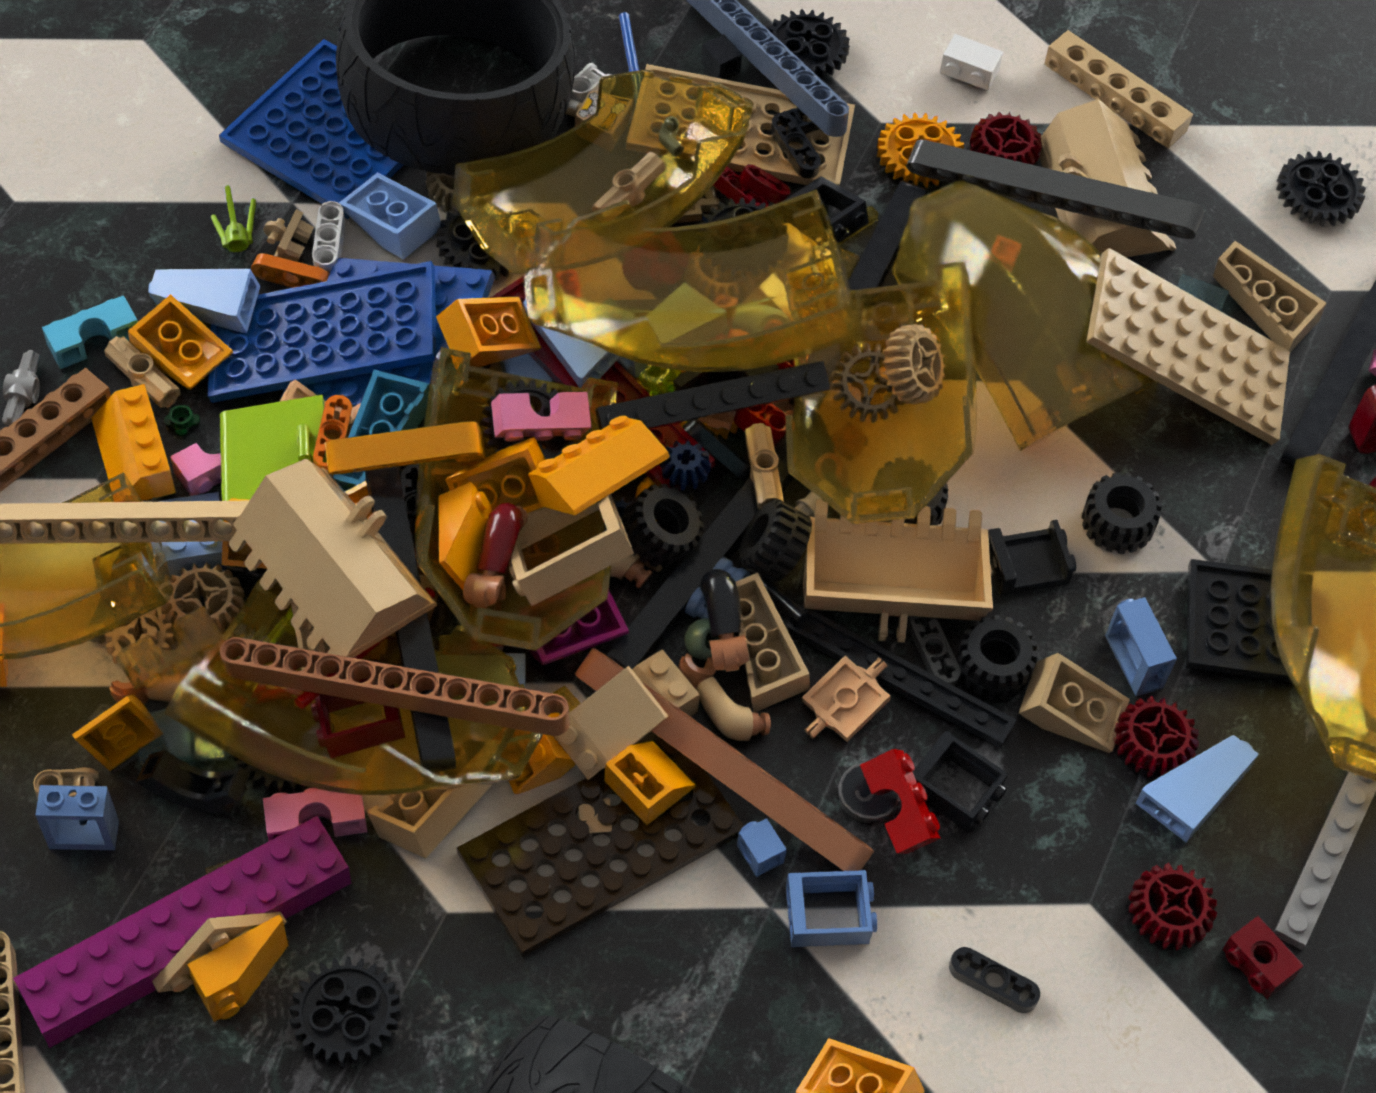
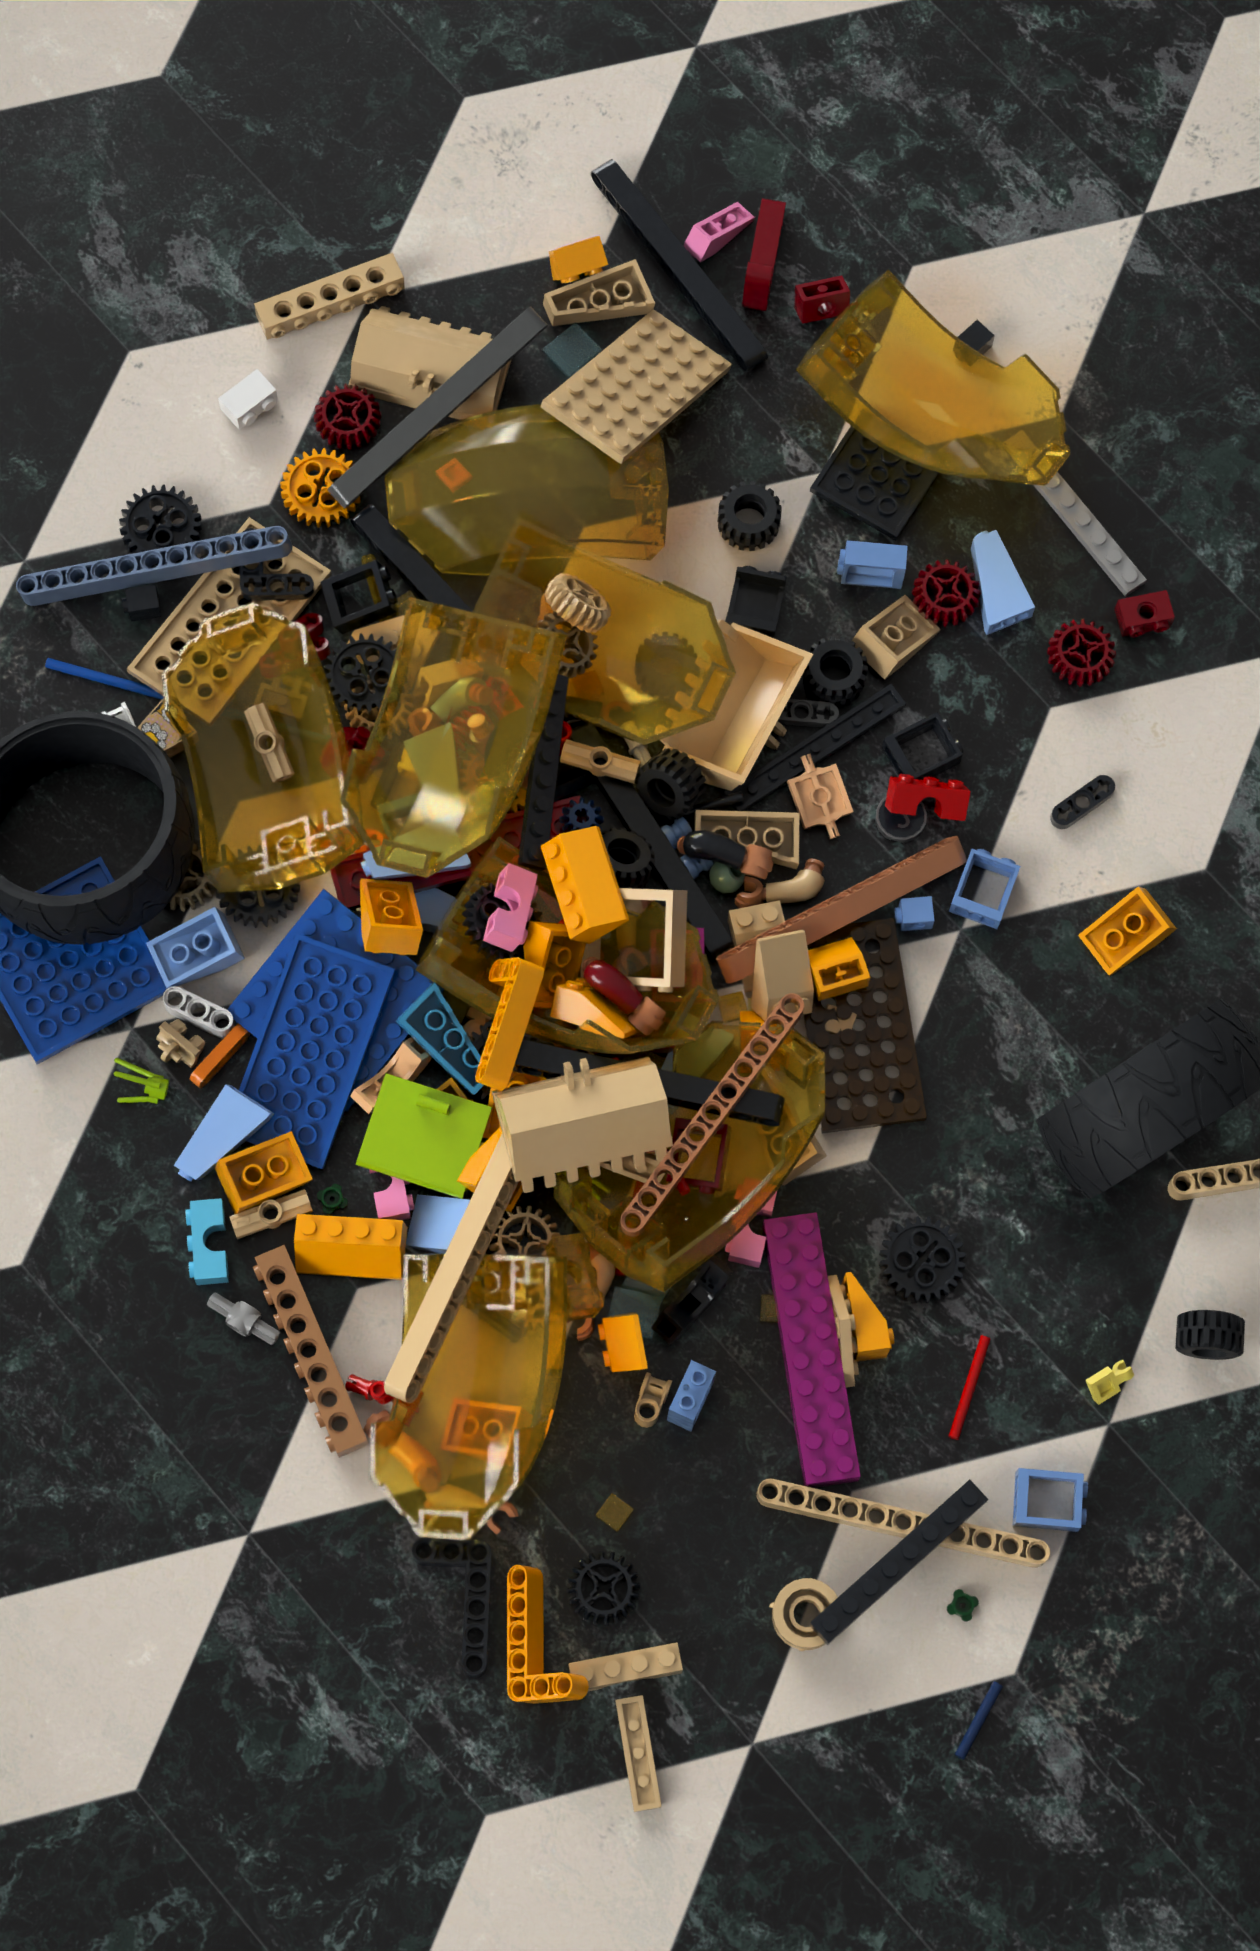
camera: 65 degrees left, 15 degrees up
(329, 423) = (412, 1076): orange beam -> none
(668, 136) = (231, 686): olive arm -> none
(1292, 255) = (577, 258): none -> light orange slope
(1320, 188) = (513, 176): black gear -> none

